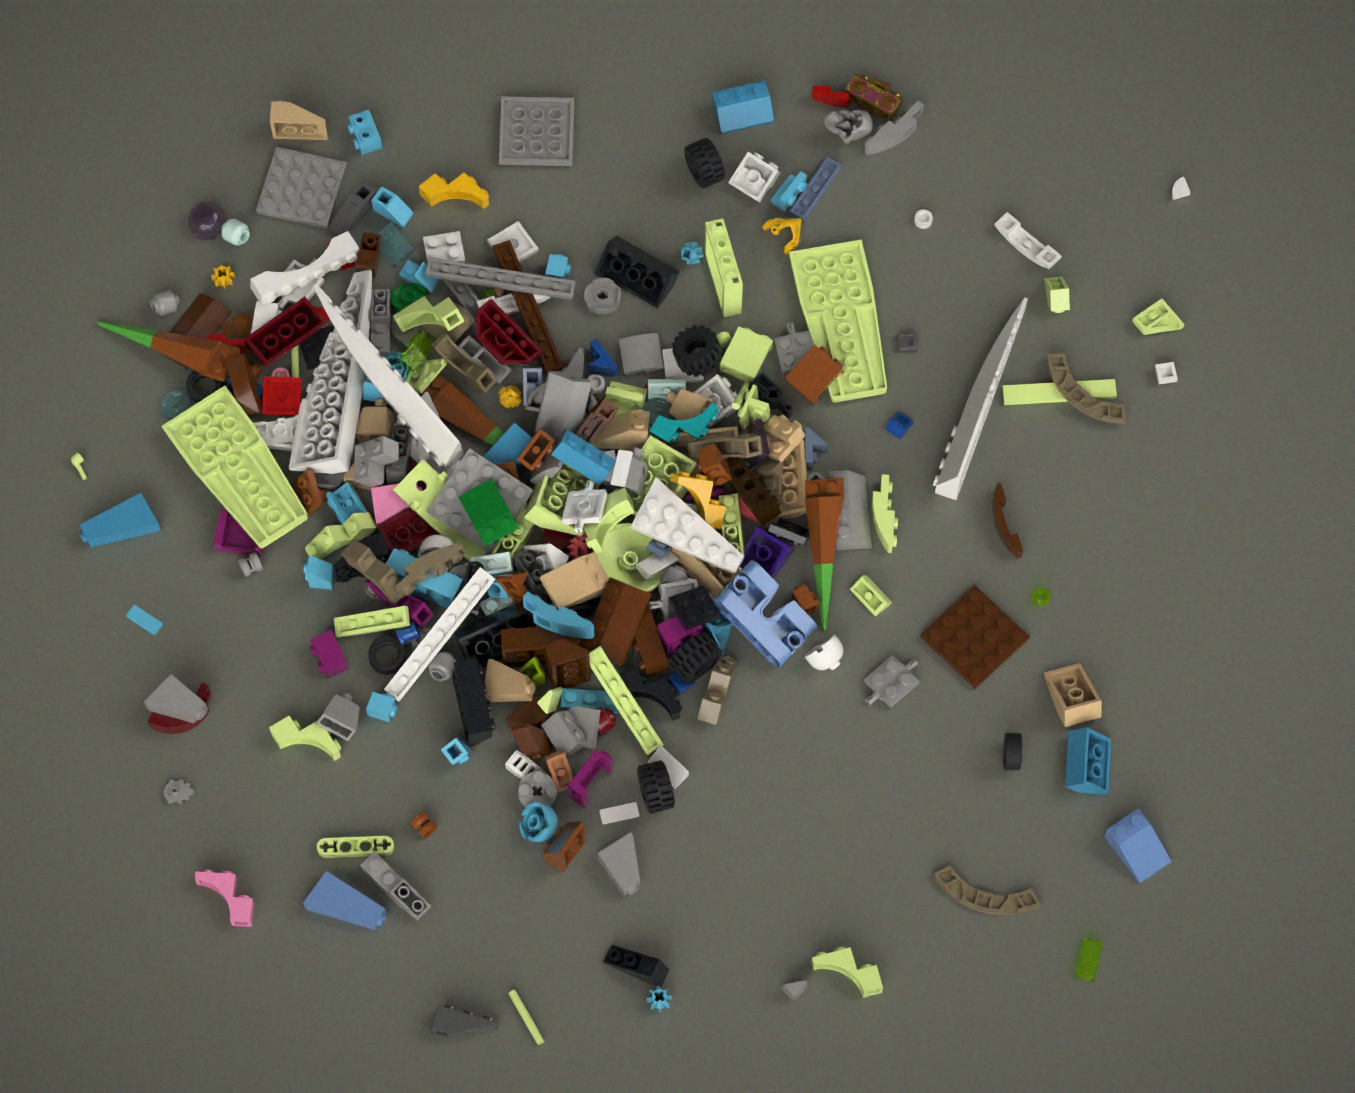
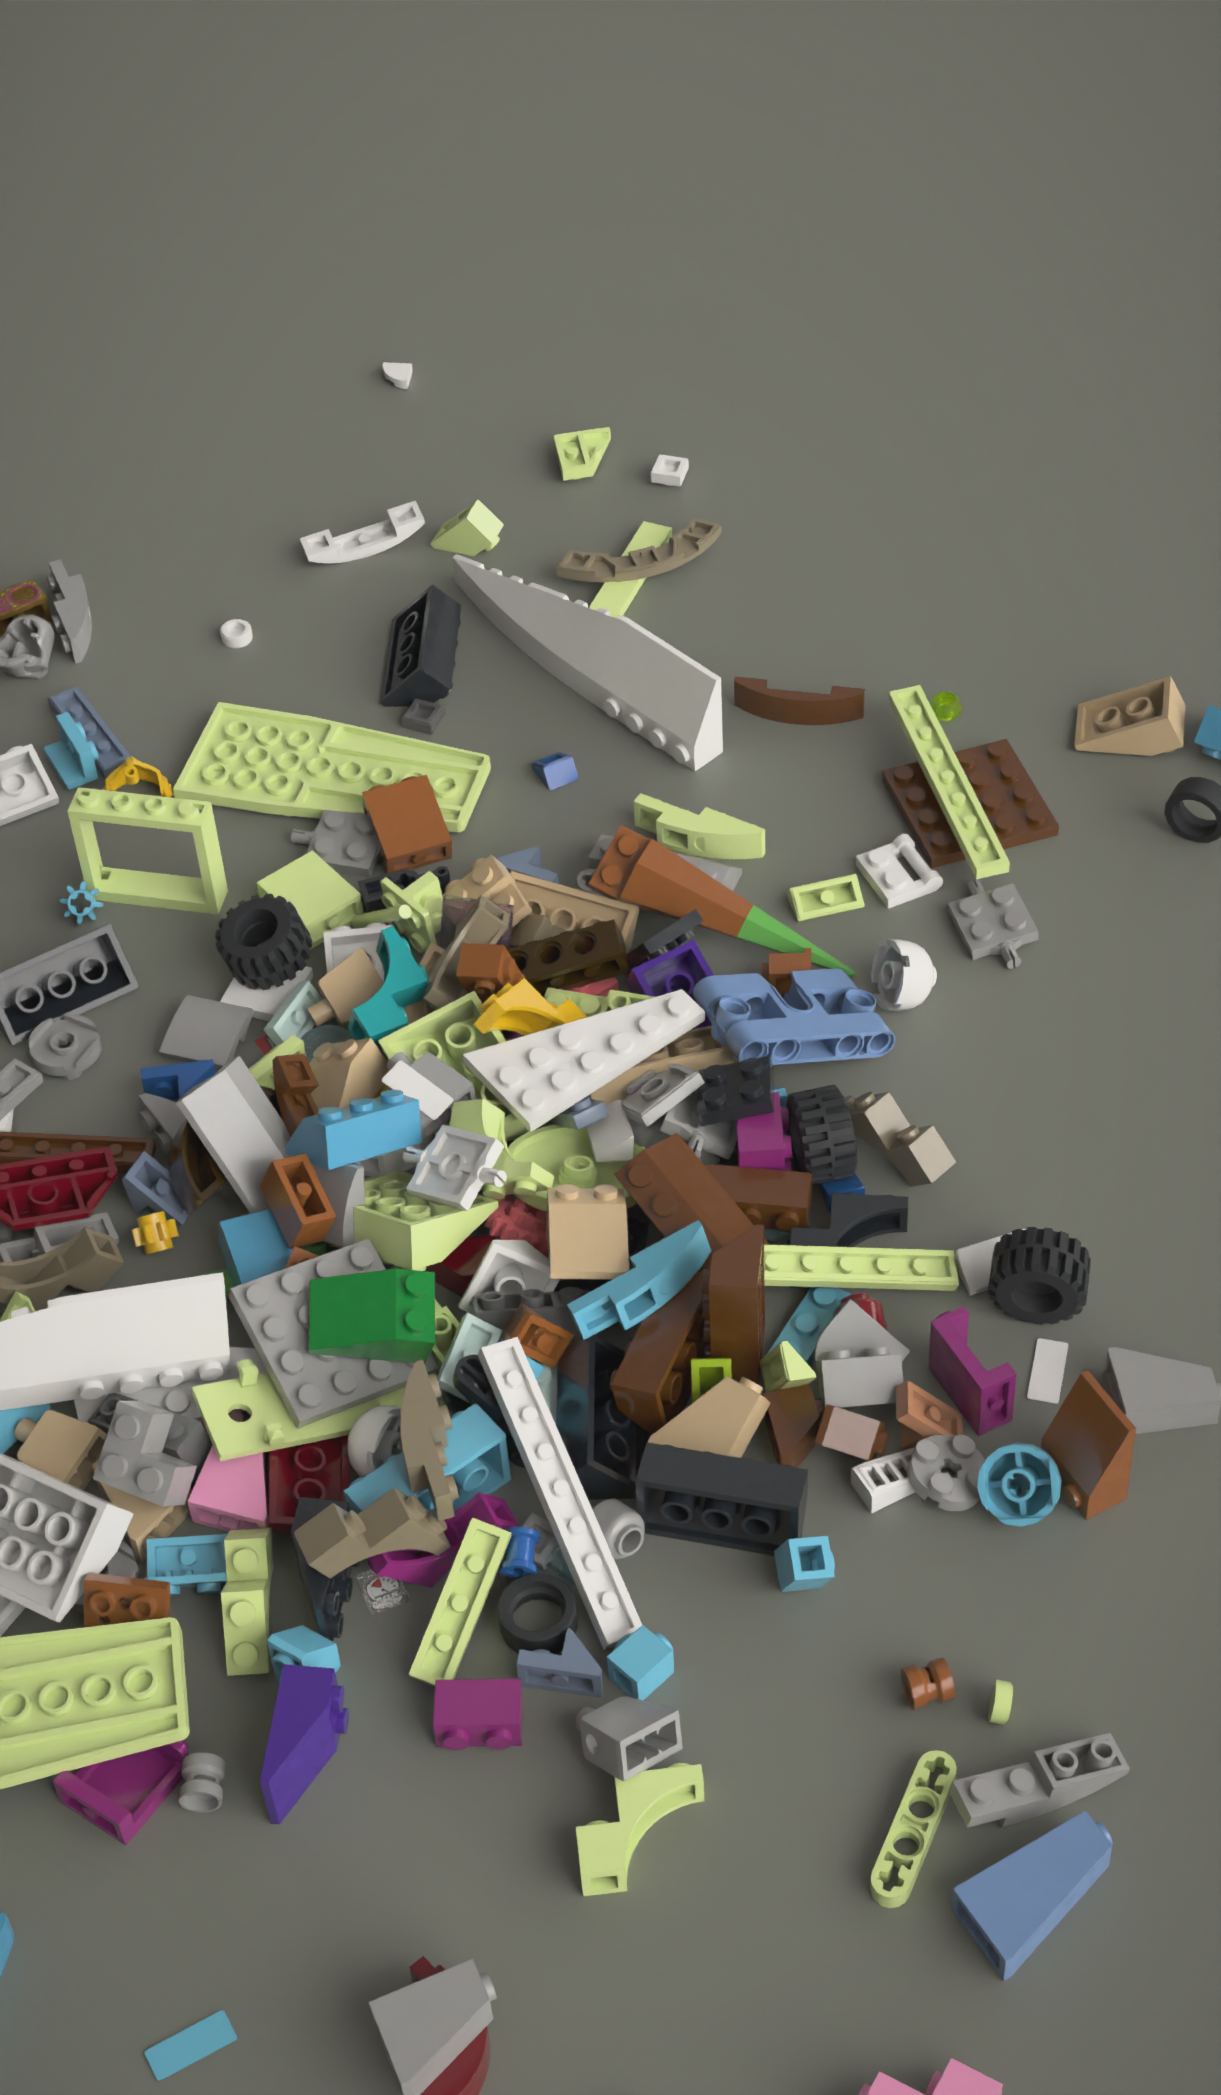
camera: 60 degrees left, 20 degrees down
(281, 590) = (301, 1735): none -> dark purple slope
(367, 679) = (567, 1673): none -> sand blue slope
(428, 857) = (1000, 1702): none -> yellowish green tile
(680, 574) = (656, 1094): none -> light grey tile
(900, 619) = (890, 878): none -> white plate
(950, 318) = (422, 650): none -> black slope
(972, 619) = (949, 782): none -> yellowish green plate

